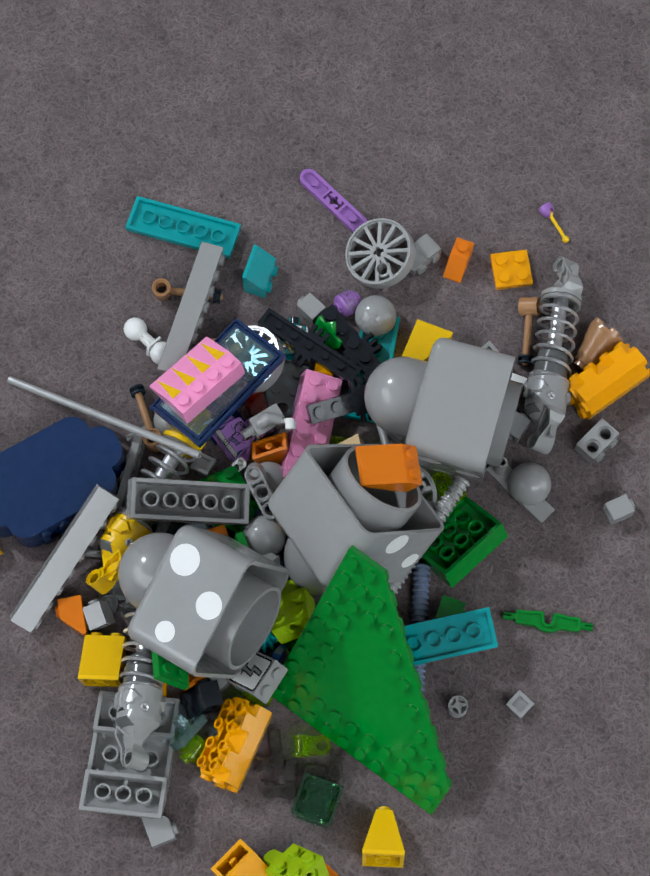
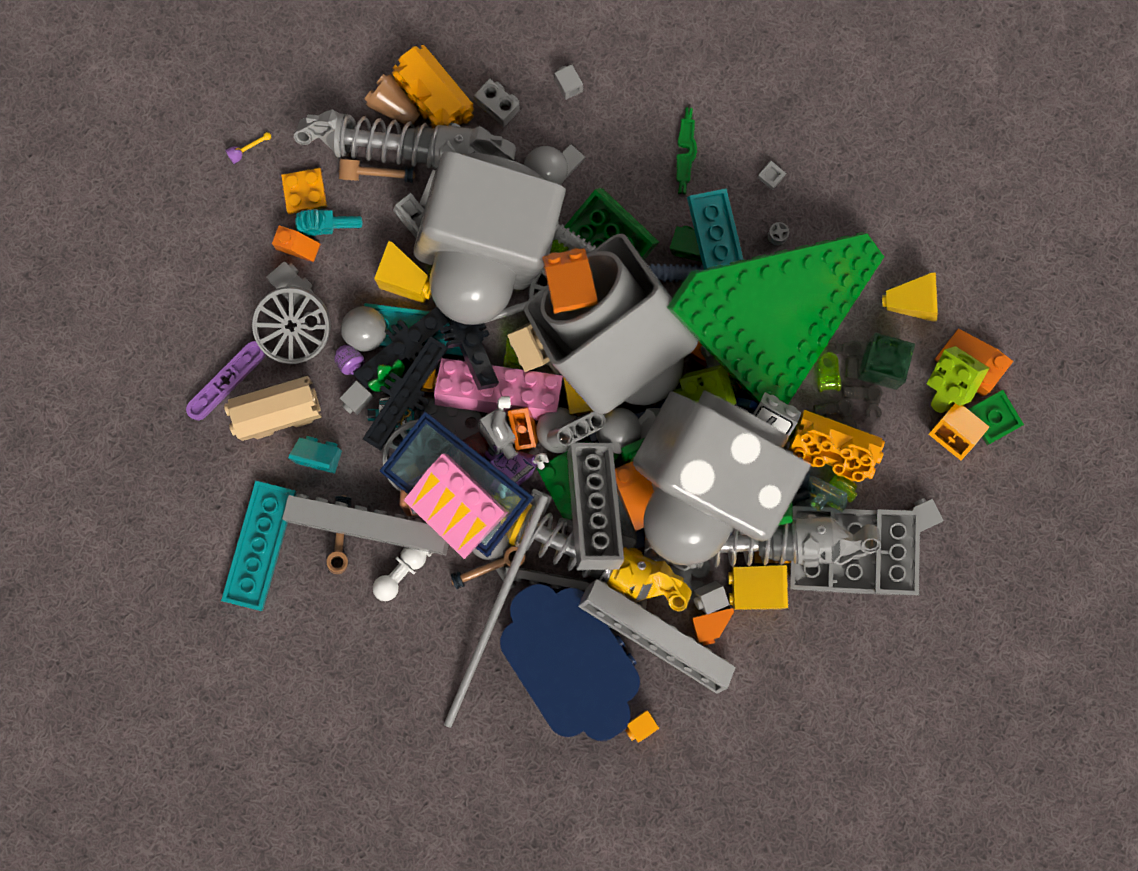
camera: 95 degrees left, 10 degrees up
(302, 237) = (273, 409): none -> tan brick
(478, 284) = (322, 222): none -> teal gear

